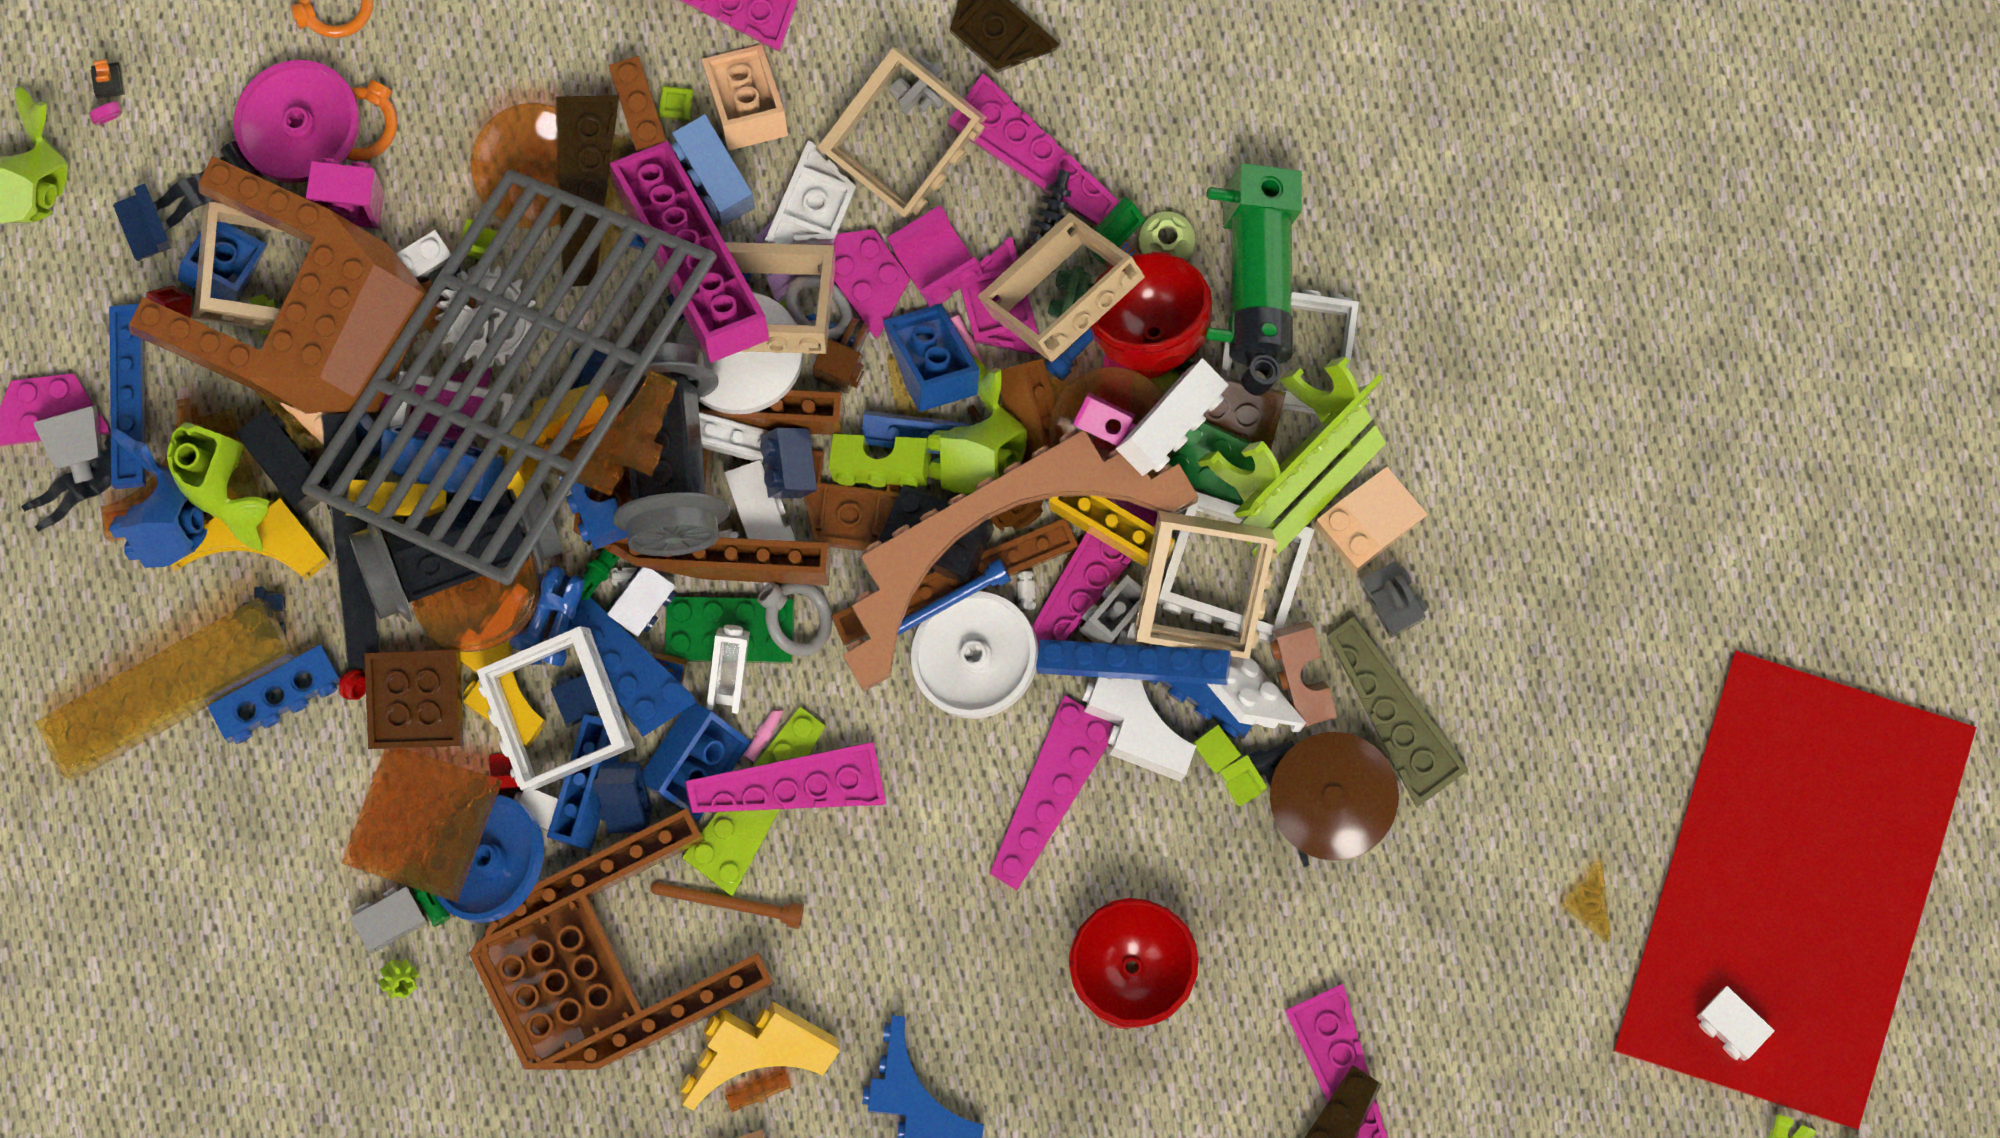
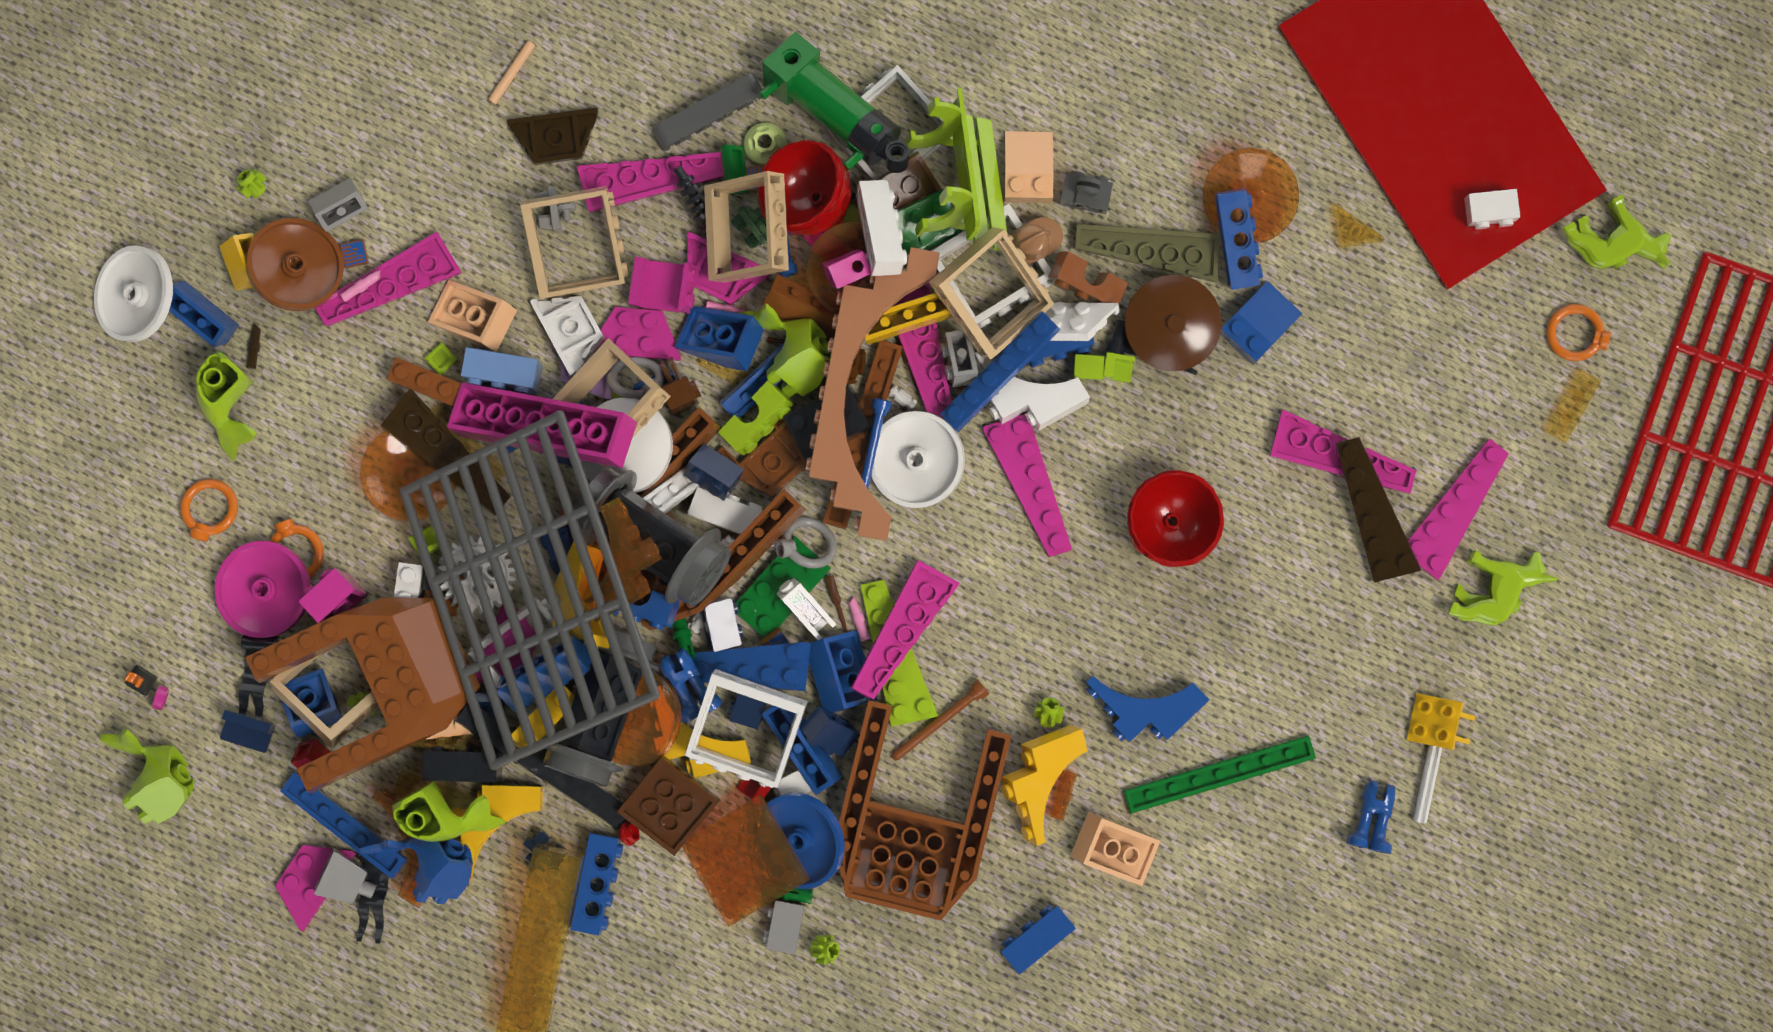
camera: 45 degrees left, 5 degrees up
(765, 693) = (835, 598): none -> reddish brown piece
(830, 1004) = (1049, 712): none -> lime gear
(1148, 154) = (706, 111): none -> dark grey beam
(1301, 588) = (1038, 238): none -> medium nougat piece
(1413, 886) = (1260, 322): none -> blue slope
(1439, 823) = (1225, 203): none -> blue brick
(1534, 766) = (1268, 181): none -> clear orange dish

